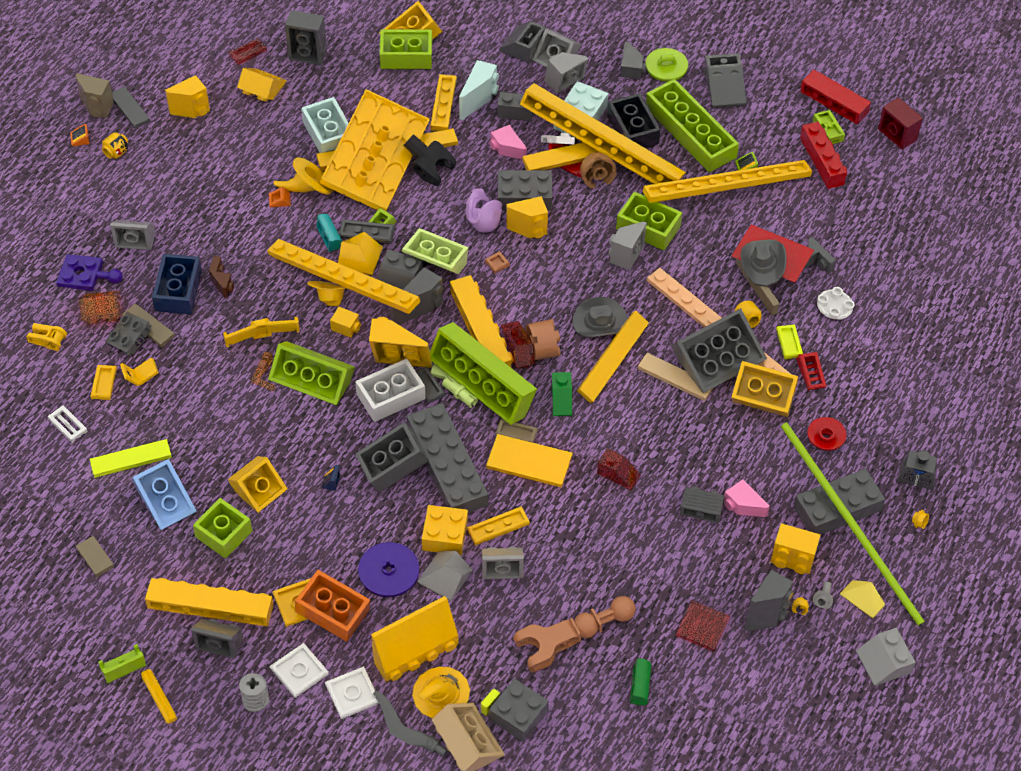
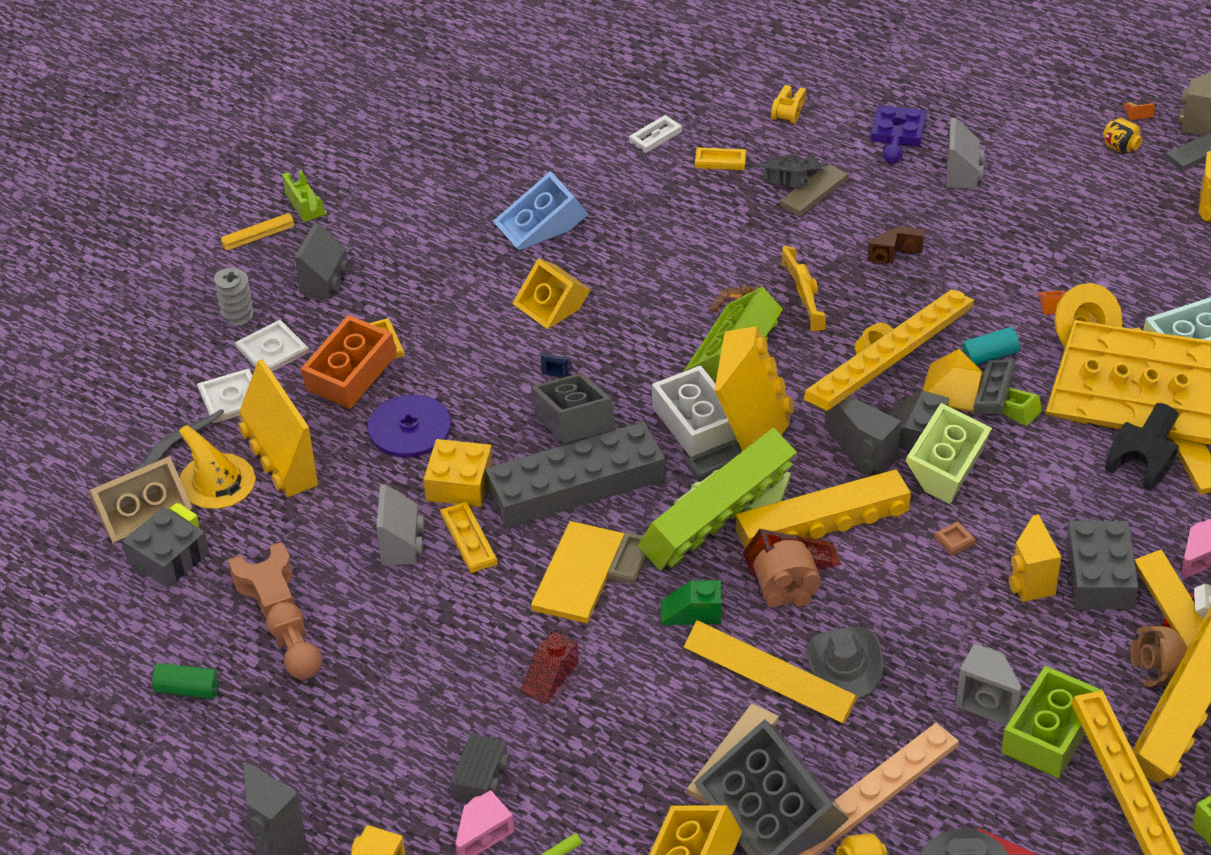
camera: 95 degrees right, 10 degrees down
(94, 556) = (458, 169): dark tan tile -> none
(100, 306) = (840, 141): clear orange slope -> none
(130, 458) = (601, 189): neon yellow tile -> none
(141, 373) = (731, 187): yellow bracket -> none
(177, 284) = (875, 201): dark blue brick -> none
(209, 601) = (377, 261): yellow brick -> none
(222, 528) = (479, 262): lime brick -> none
(345, 322) = (820, 363): yellow brick -> none
(446, 574) = (394, 473): light grey slope -> none
(485, 218) = (1031, 502): lavender helmet -> none
(703, 626) = (273, 756): clear red tile -> none

